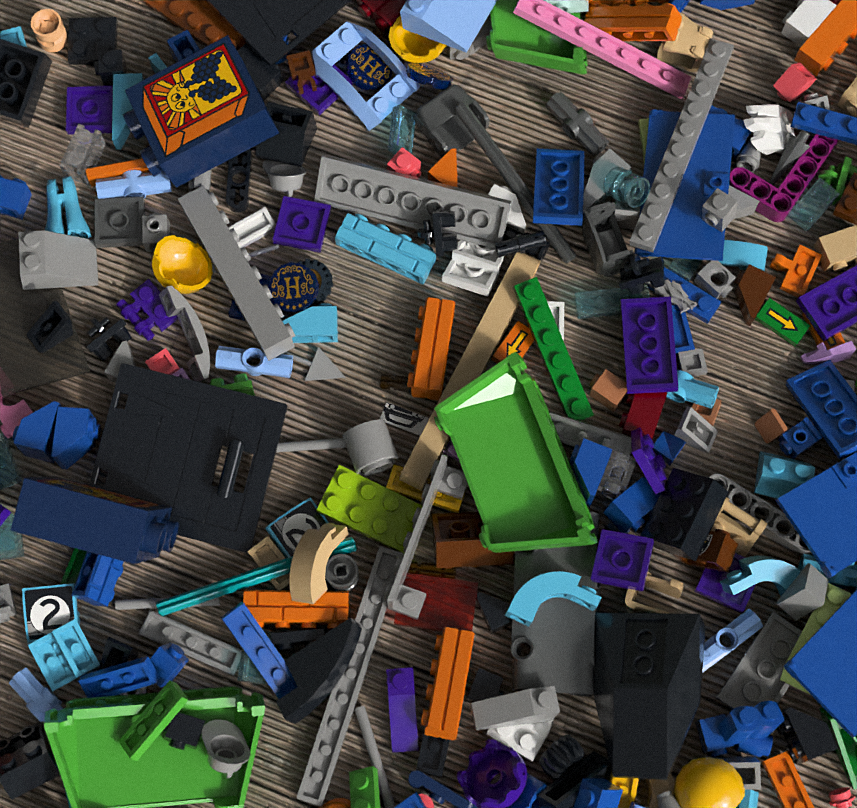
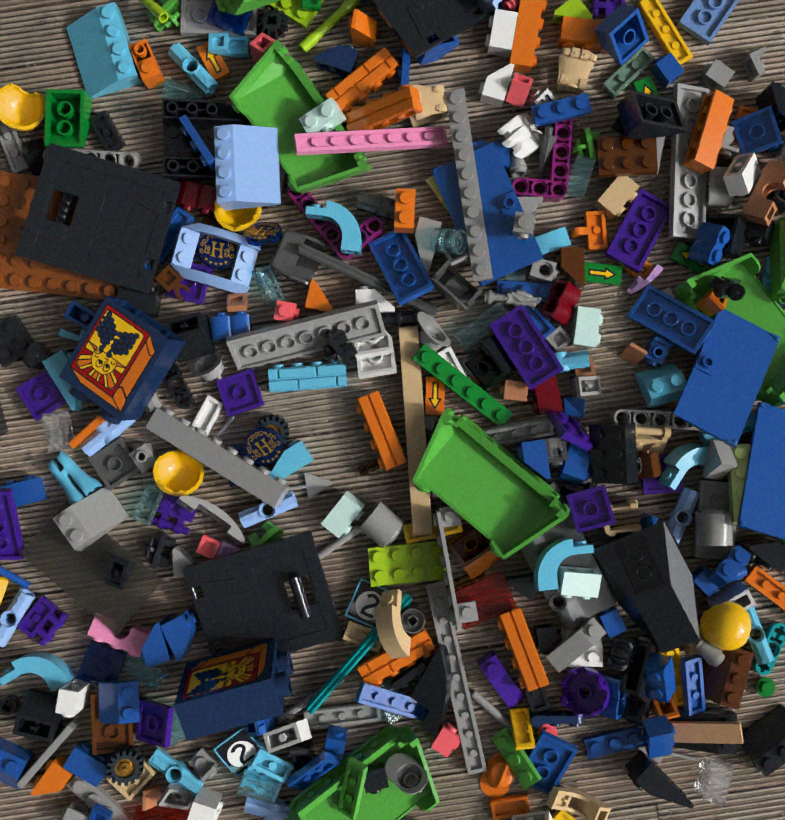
camera: 30 degrees left, 15 degrees up
(45, 661) = (259, 786): none -> clear light blue slope
(116, 621) = (287, 736): none -> white brick
(127, 281) = (148, 504): none -> clear light blue slope
(295, 739) = (445, 739): none -> coral brick
(330, 143) = (226, 326): none -> blue brick
(334, 413) = (343, 514): none -> light aqua brick
(349, 13) = (179, 219): none -> blue plate
(357, 130) = (237, 302): none -> nougat plate
(392, 779) = (521, 728): none -> yellow plate
(404, 419) = (389, 487): sticker -> none
(504, 109) = (329, 227): none -> magenta beam
(520, 94) = (339, 215): none -> medium azure arch
(520, 244) = (399, 324): black pin -> none
(552, 275) = (431, 332): none -> light grey piece
(559, 634) = (578, 582): none -> light aqua brick
(573, 714) = (611, 621): none -> blue brick
(596, 131) = (404, 210): none -> orange brick
(596, 343) = (487, 363): none -> black slope
(640, 272) = (494, 299): black hips -> none
(717, 323) = (561, 302): none -> dark red brick
(731, 366) = (586, 327): none -> light aqua brick
(757, 666) = (713, 527): none -> light grey piece
(770, 66) = (496, 86): none -> white slope

